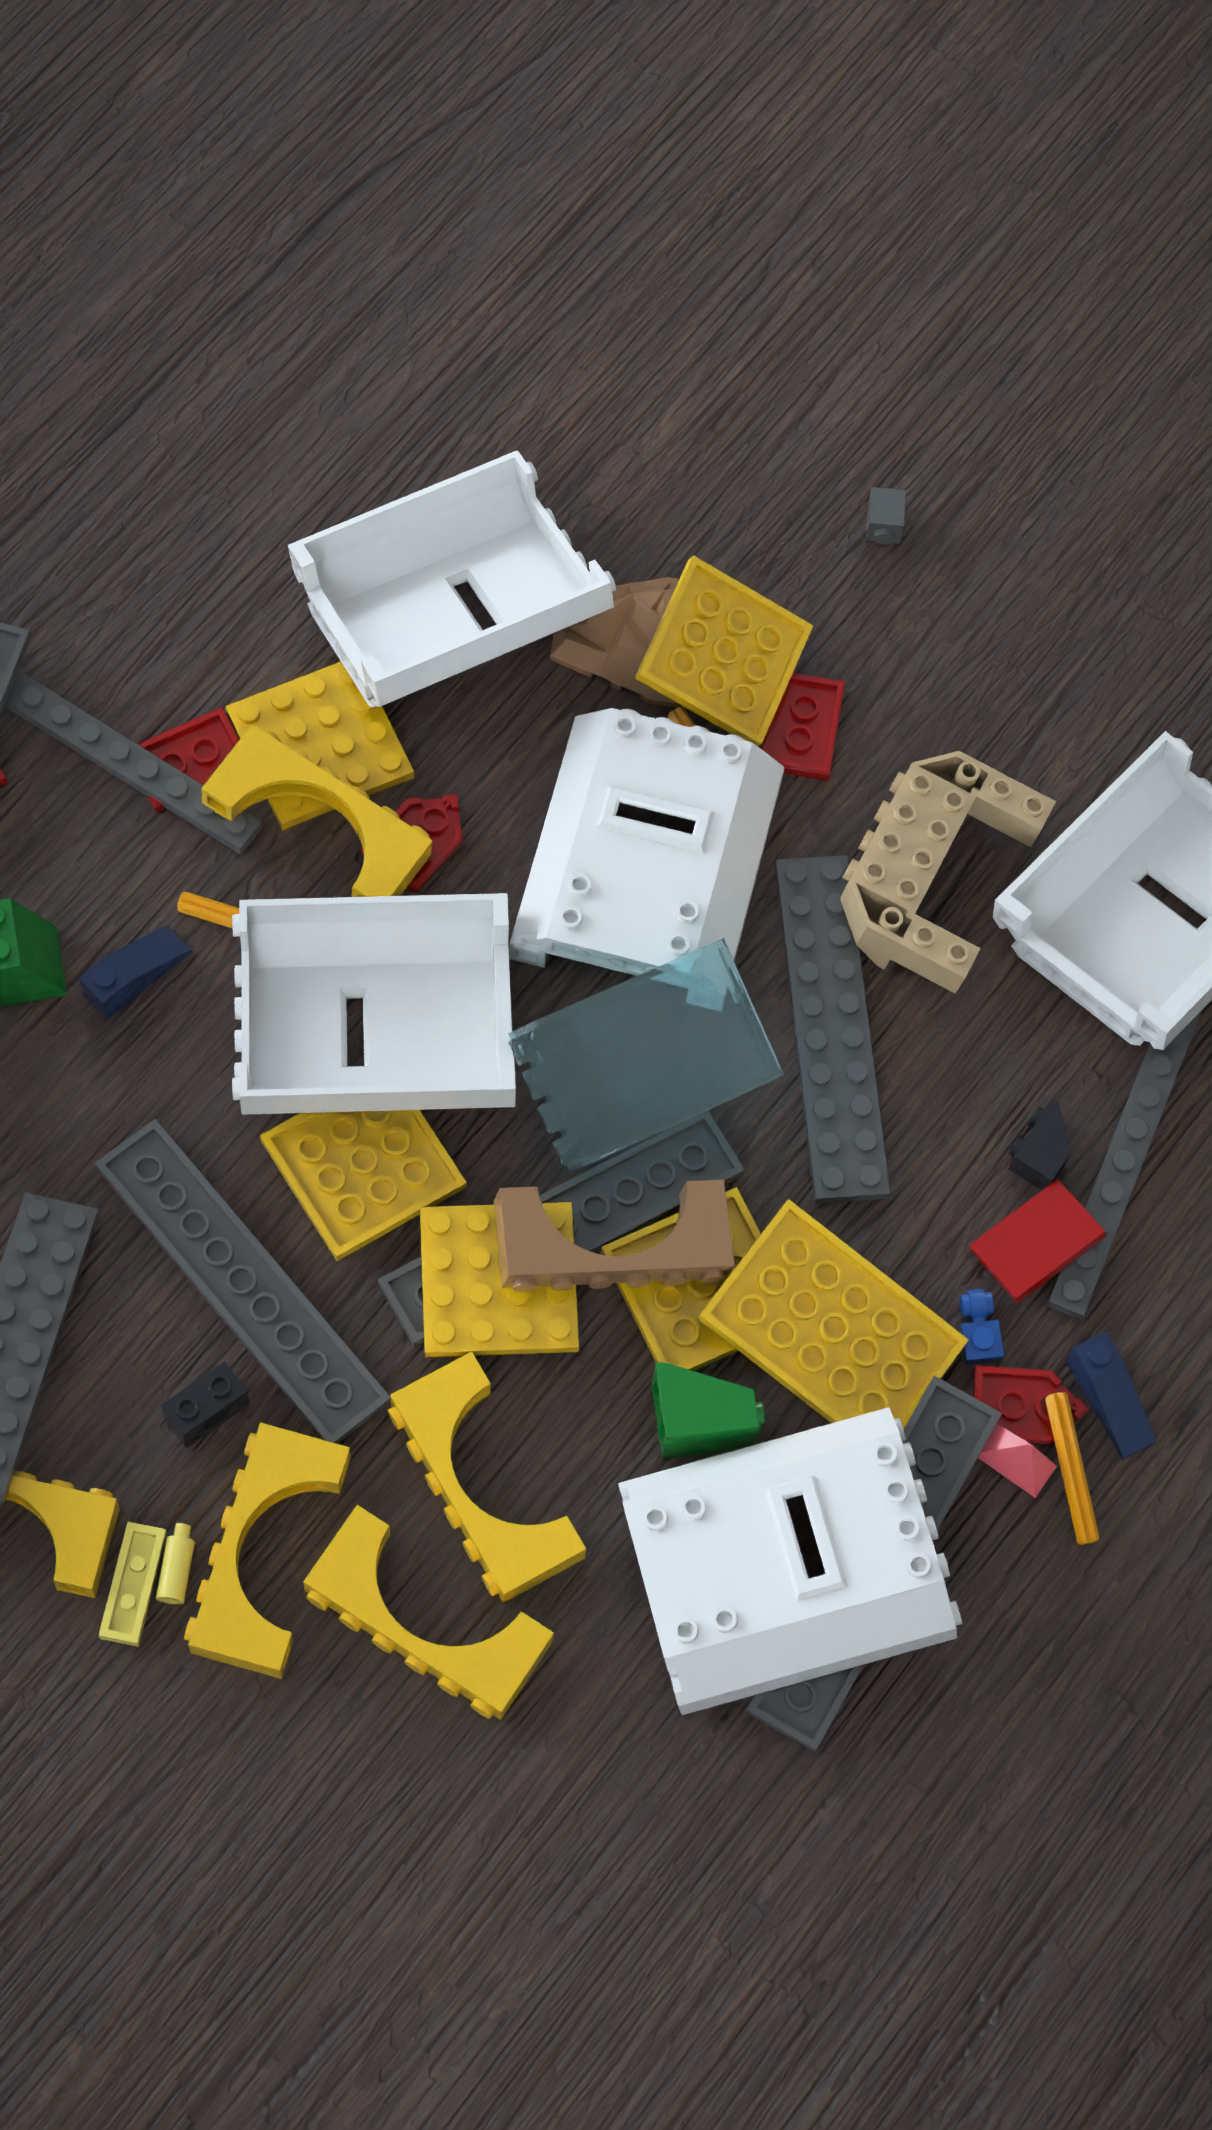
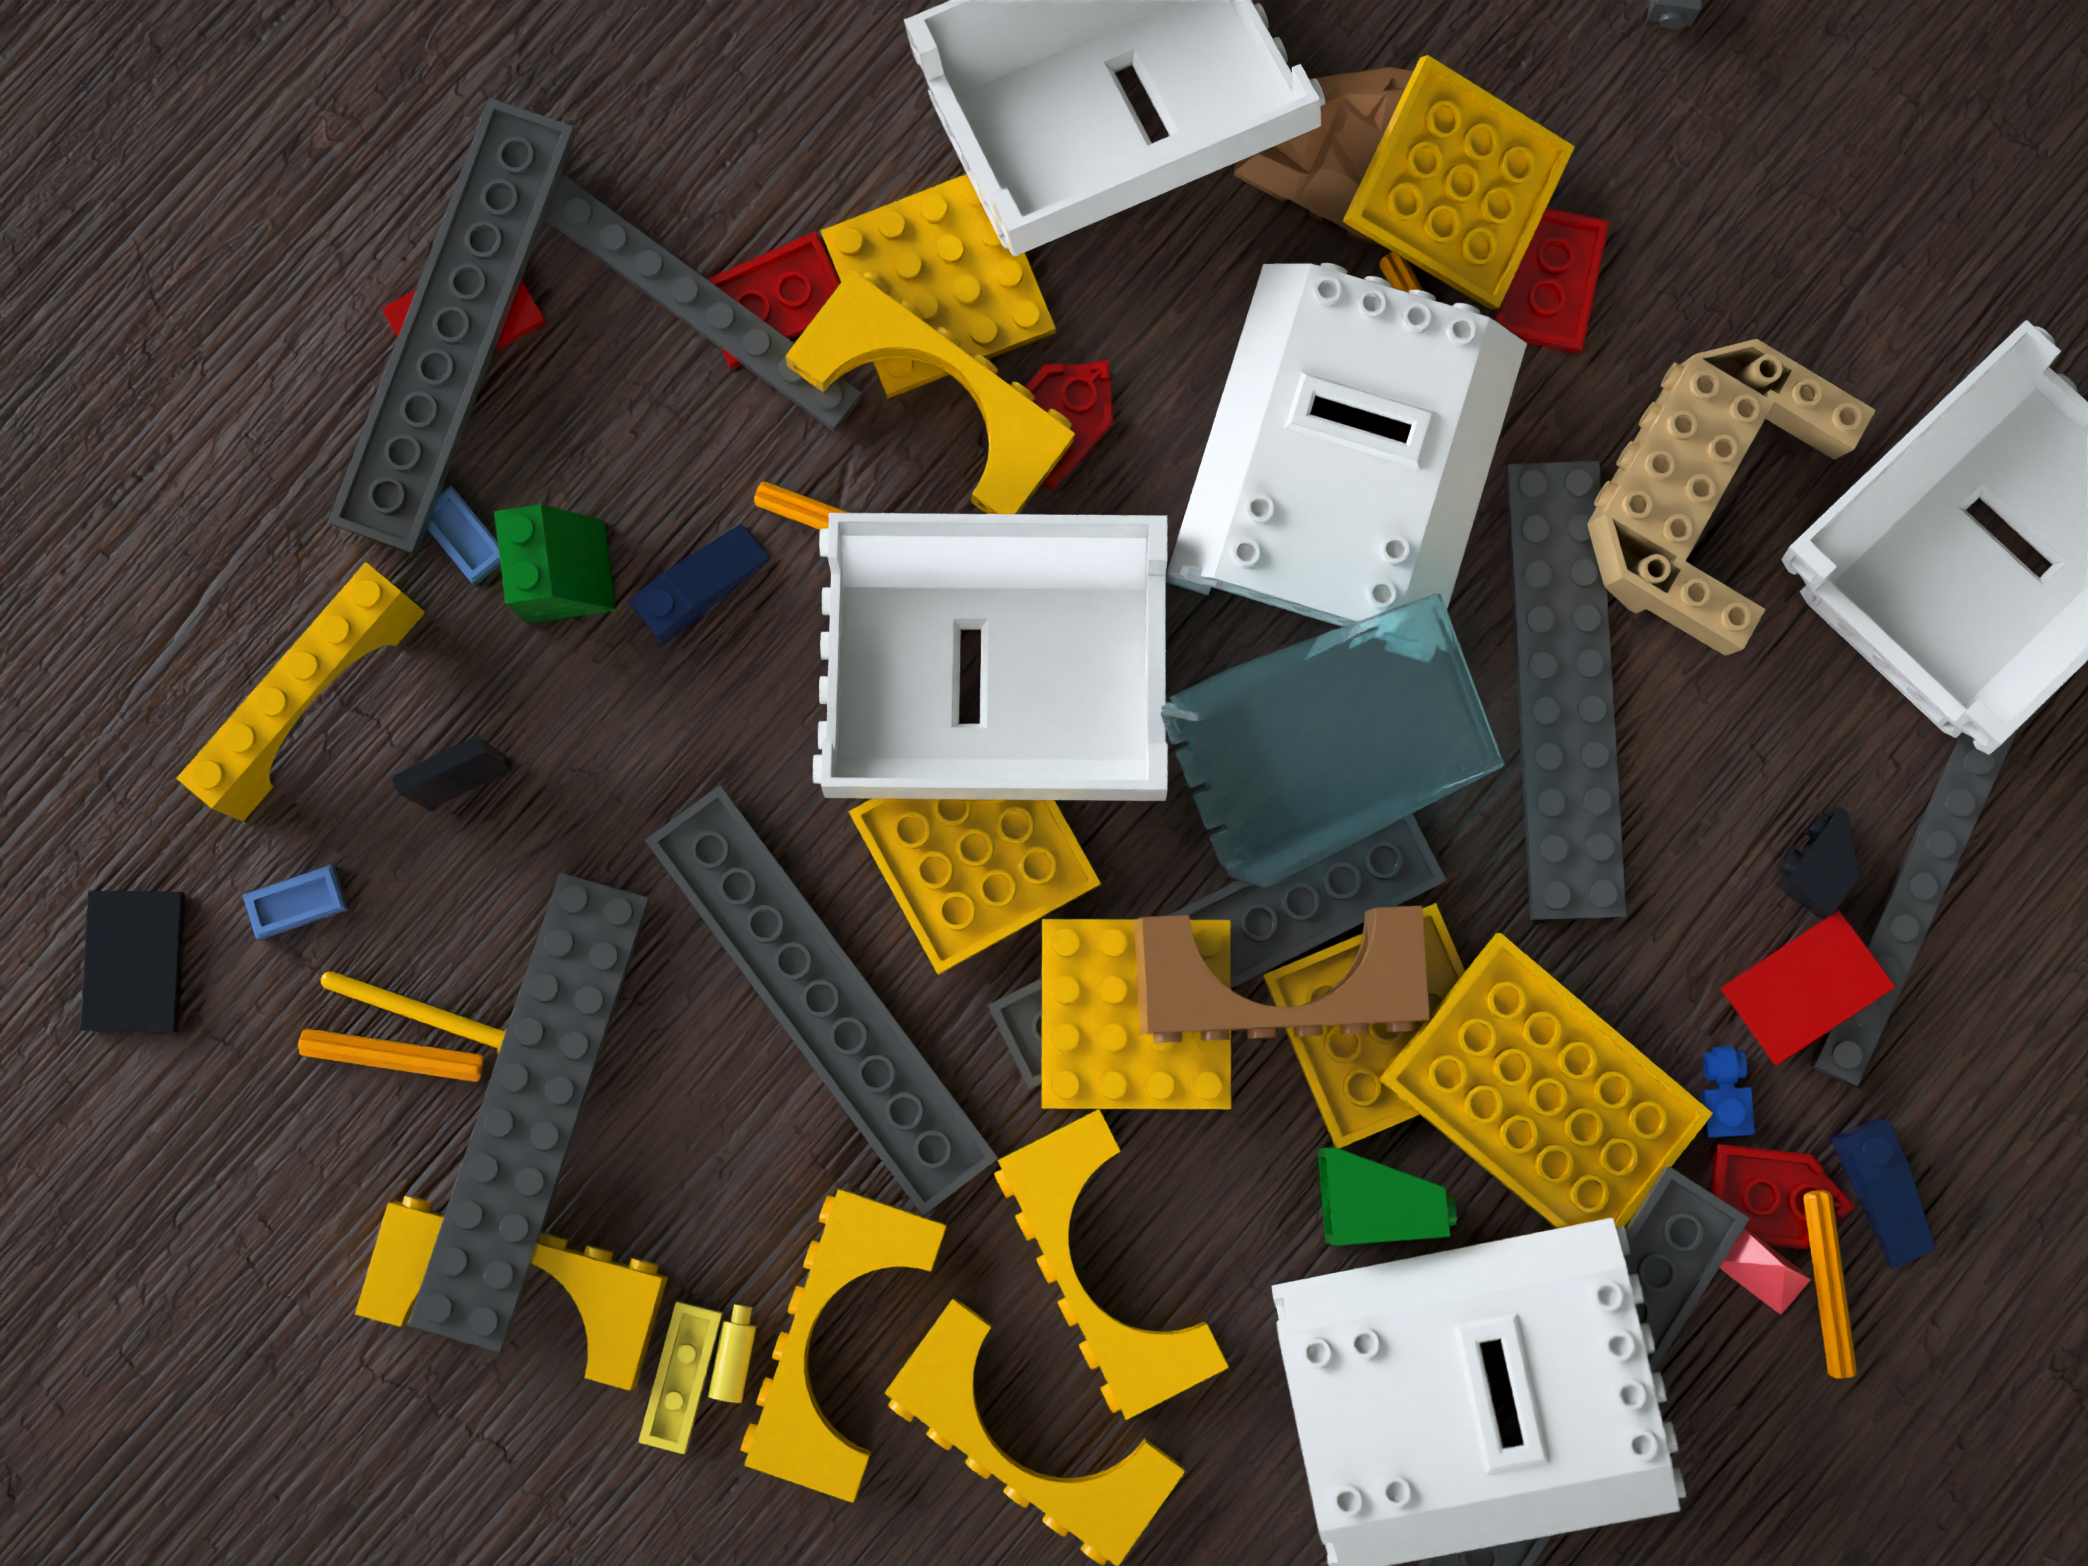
camera: 10 degrees right, 15 degrees up
(205, 1404) = (772, 1158): black brick -> none

